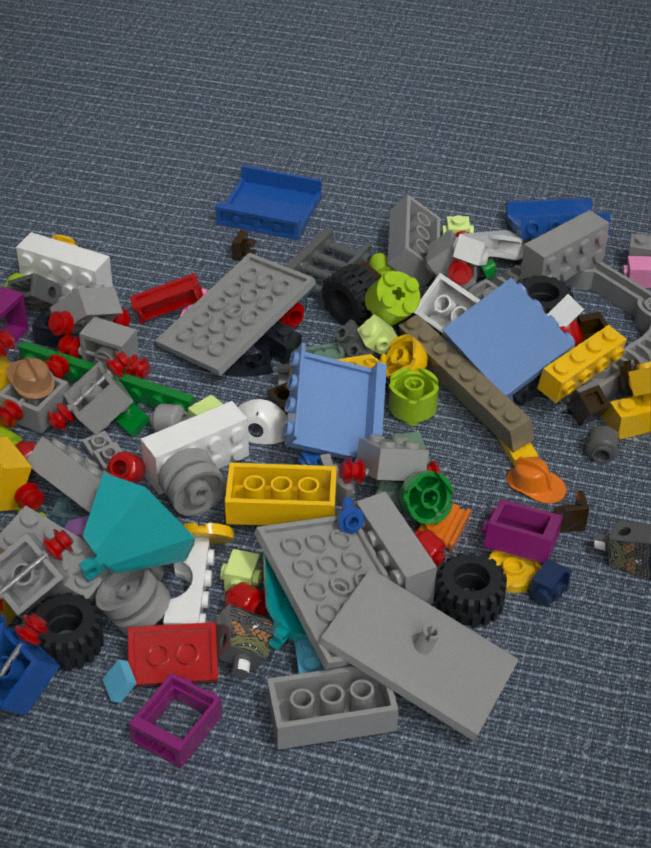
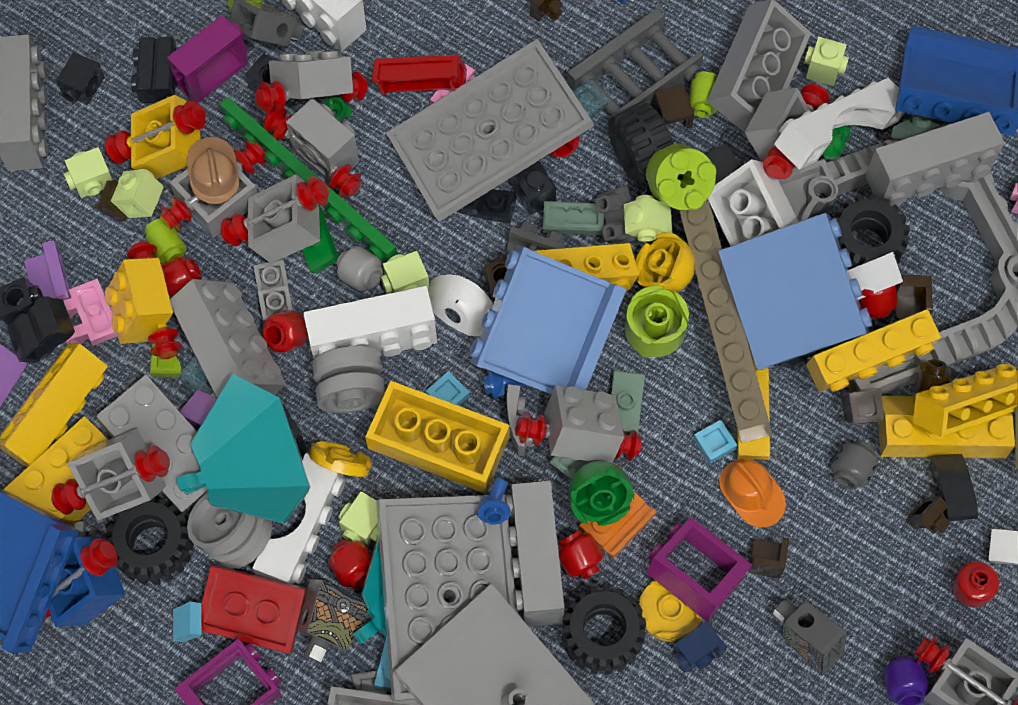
camera: 20 degrees right, 25 degrees up
(492, 459) = (715, 441): none -> medium azure tile

